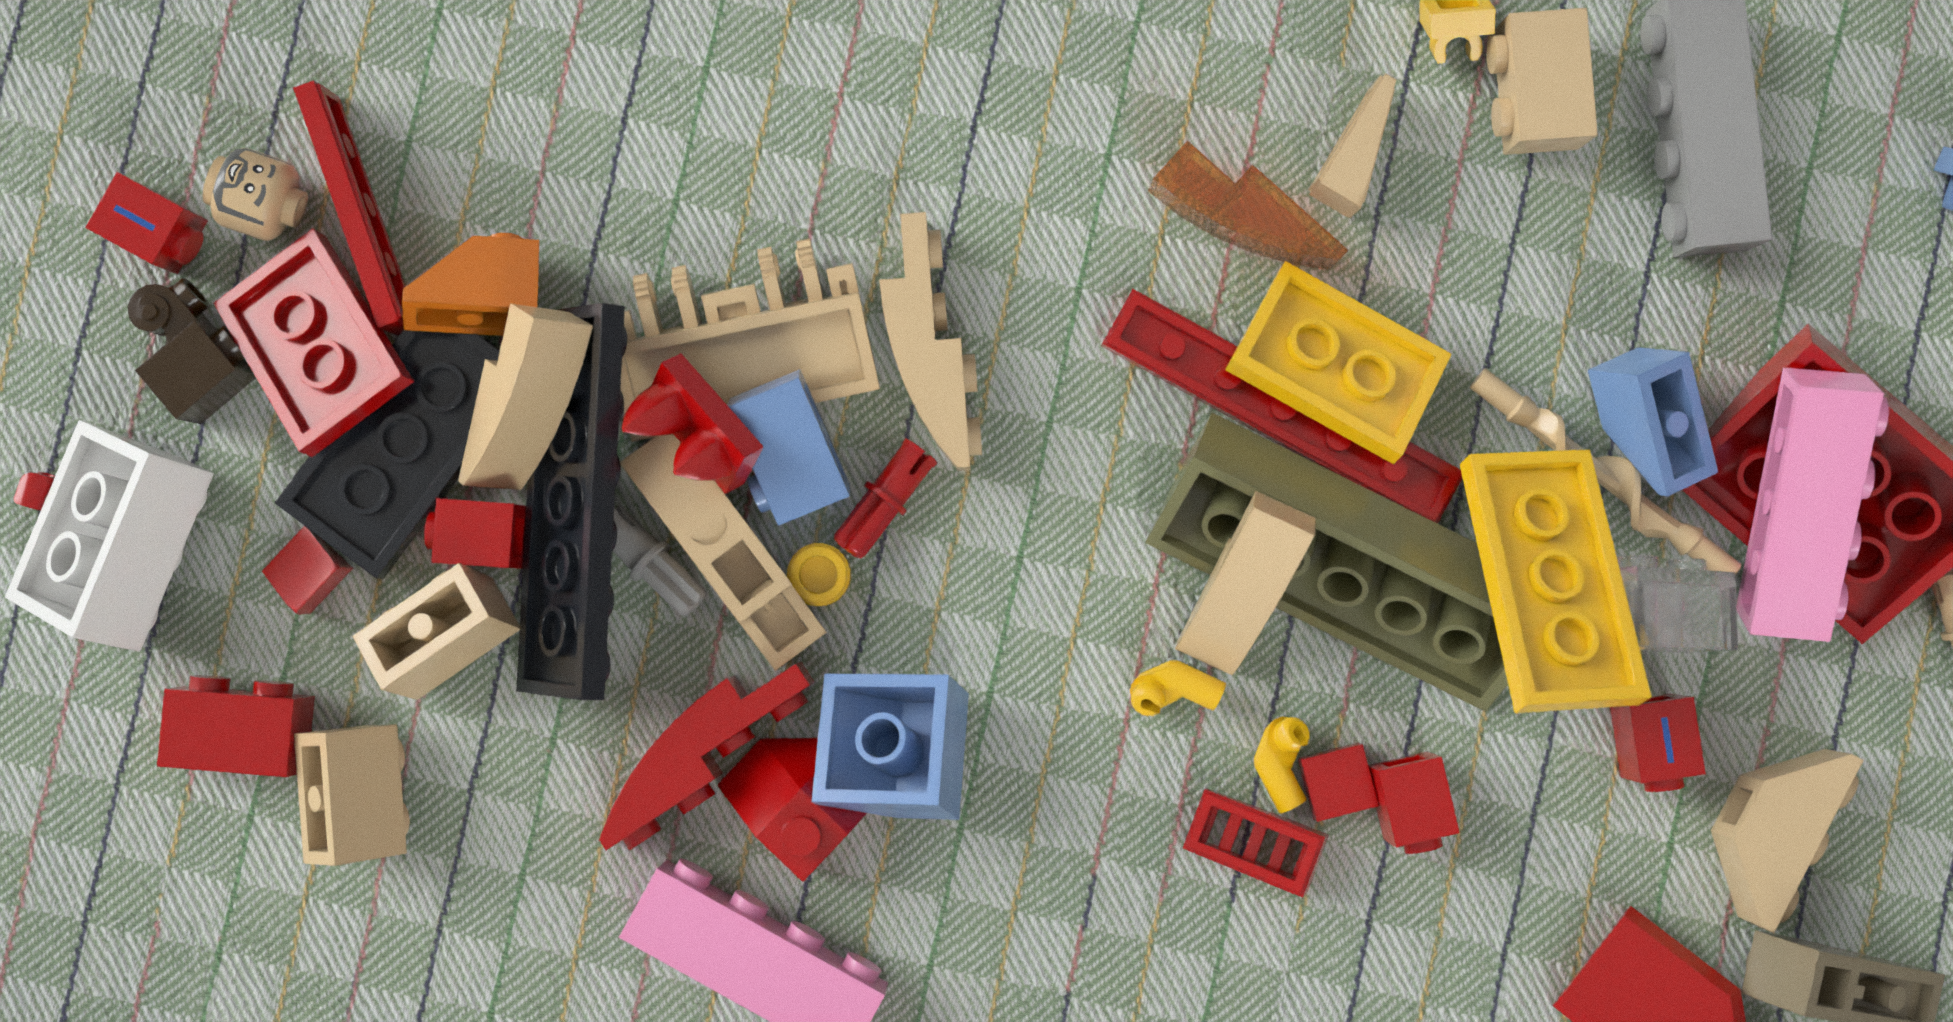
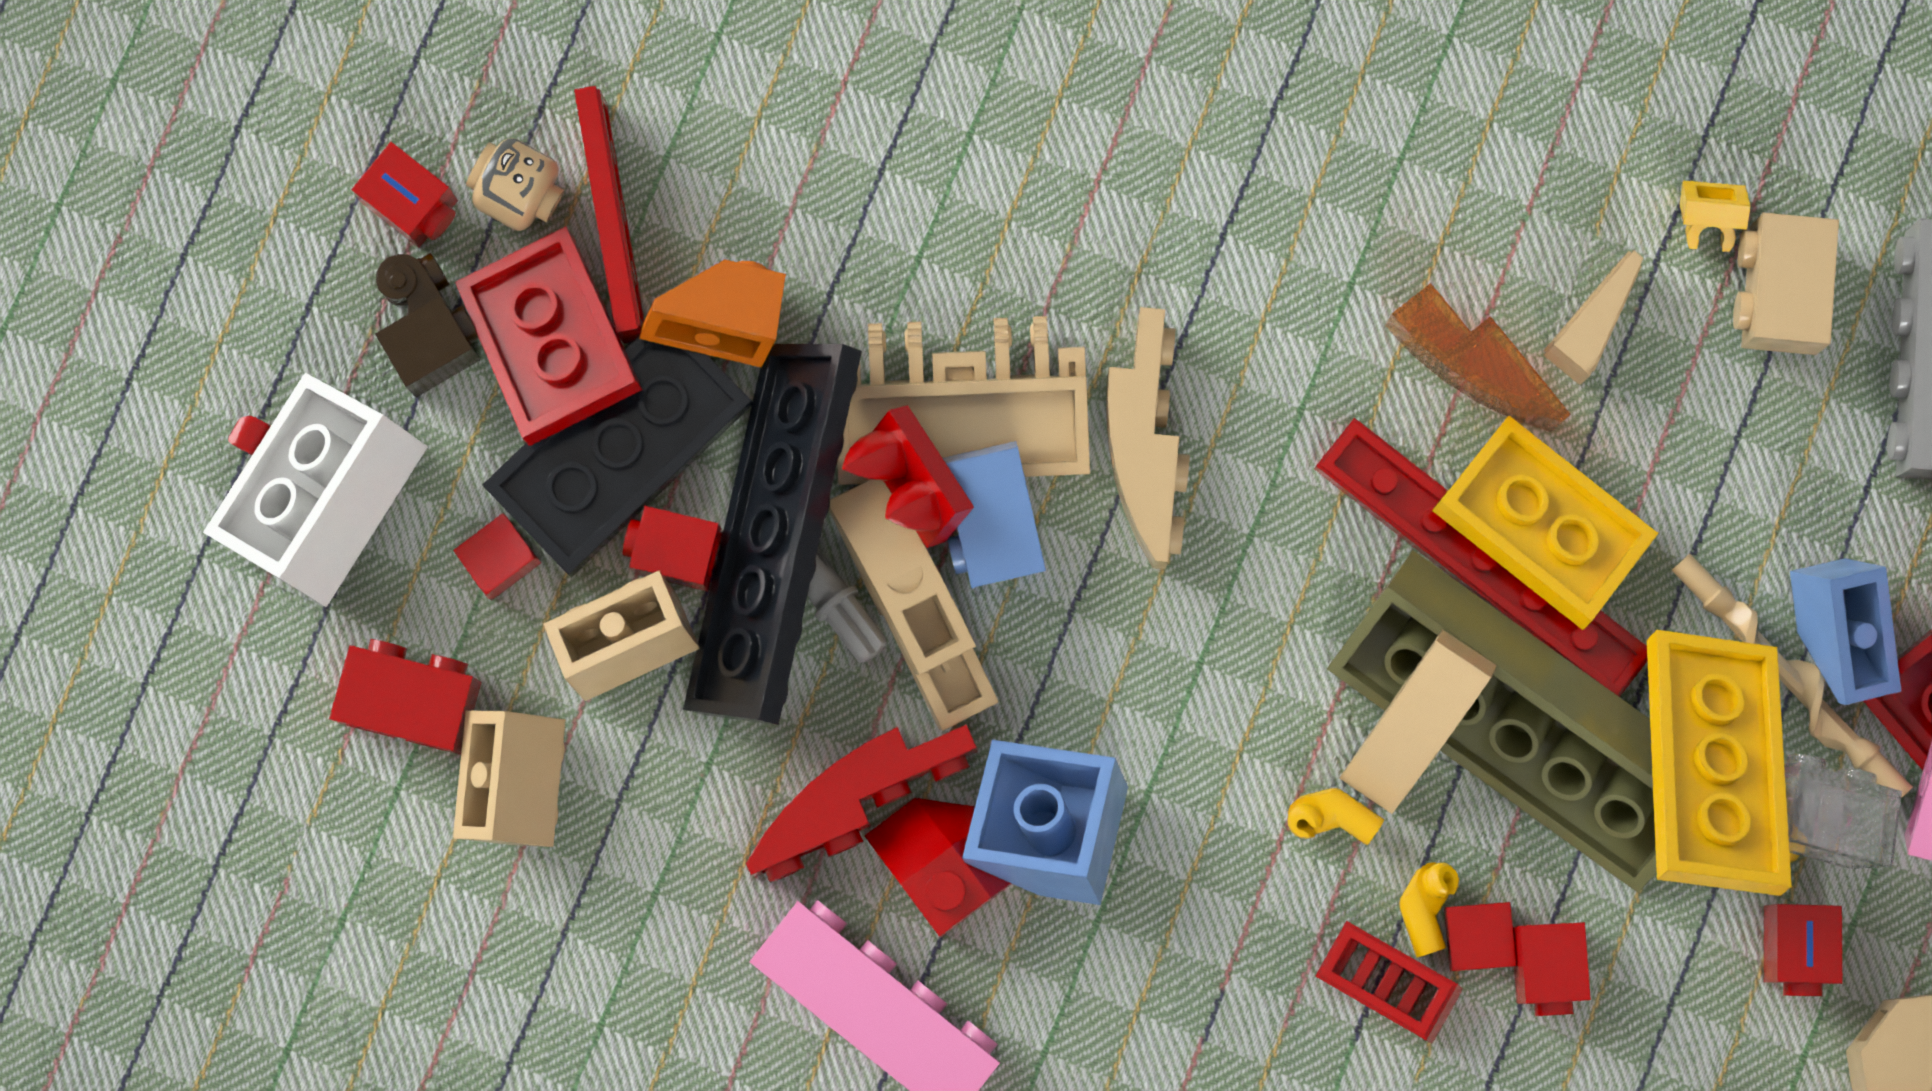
camera: 10 degrees right, 5 degrees down
(523, 396) = (746, 422): tan slope -> none
(819, 574) = (1001, 645): yellow tile -> none
(884, 499) = (1076, 582): red axle -> none

